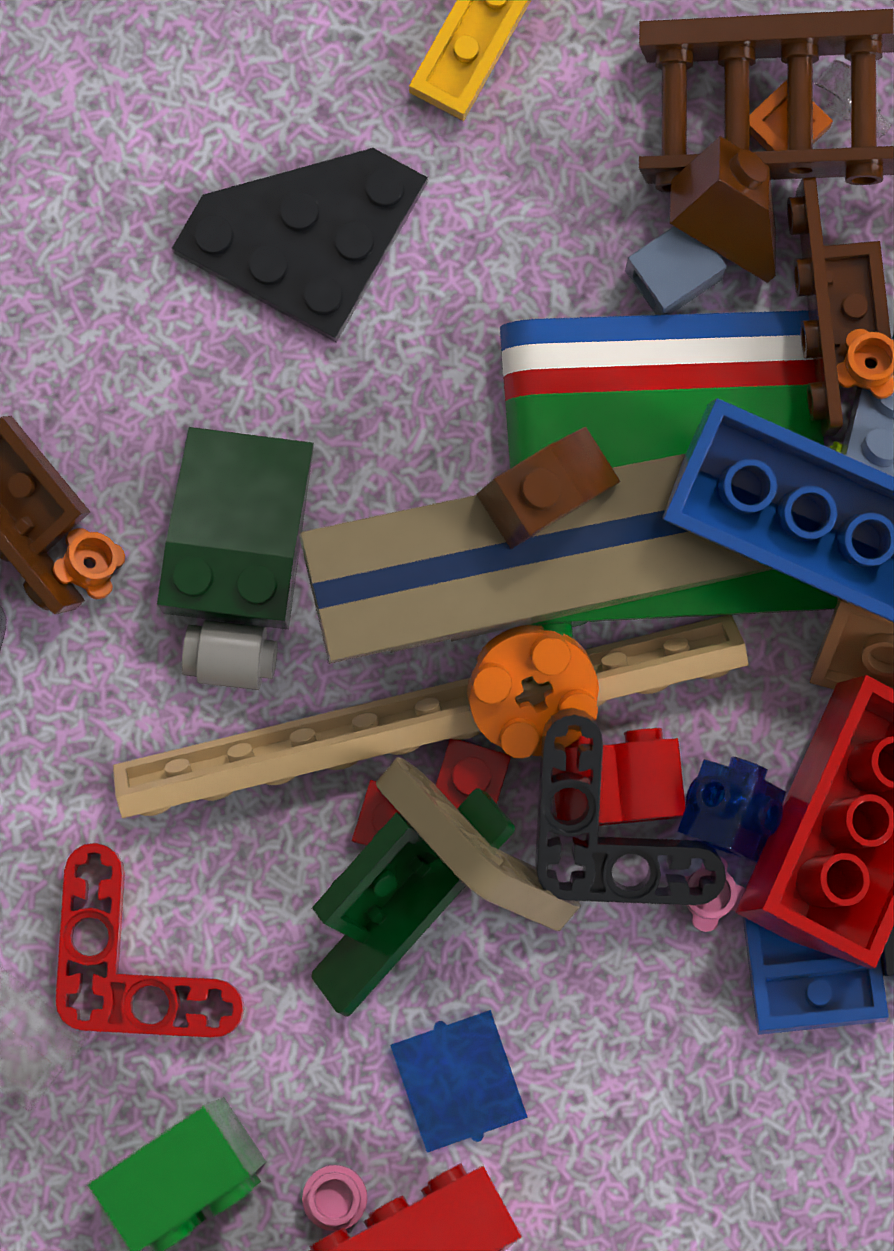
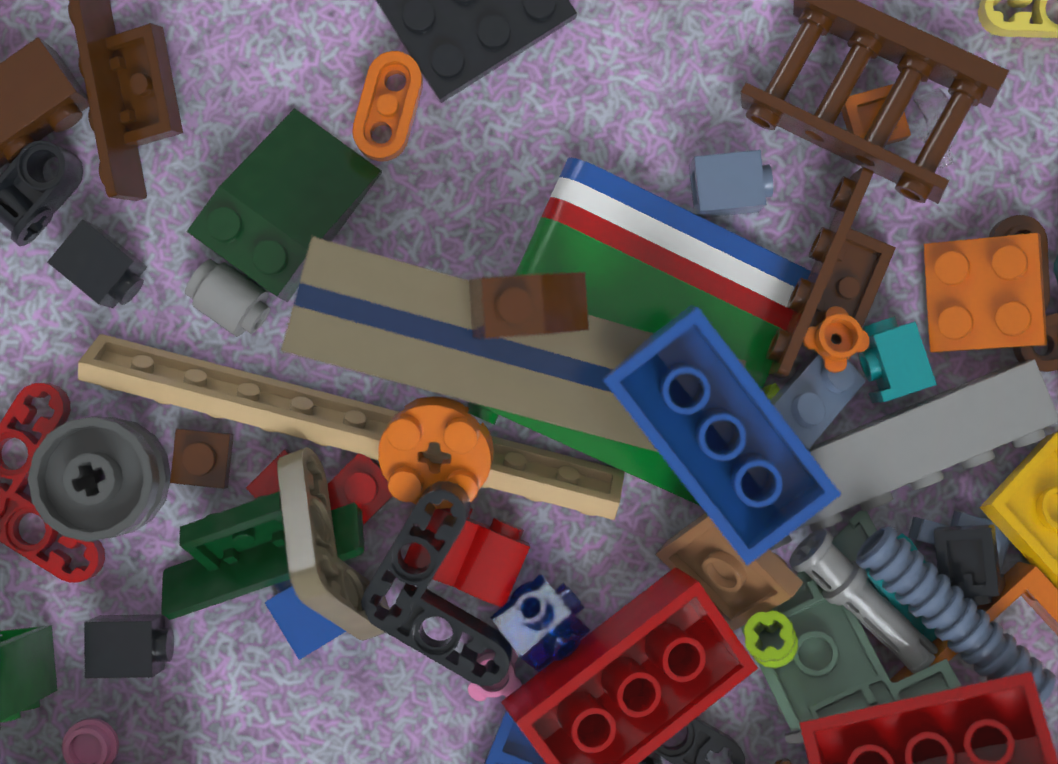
camera: 30 degrees right, 5 degrees up
(79, 692) = (99, 265): none -> black brick
(94, 546) = (166, 156): orange plate -> none
(161, 901) = (68, 486): none -> dark grey wheel
(286, 374) = (386, 107): none -> orange plate
(288, 836) = (201, 458): none -> reddish brown plate
(319, 1067) = (127, 646): none -> black brick
(458, 1081) = (230, 708): clear blue piece -> none
(485, 932) = (300, 624): none -> blue brick
(728, 206) = (793, 158): reddish brown slope -> none

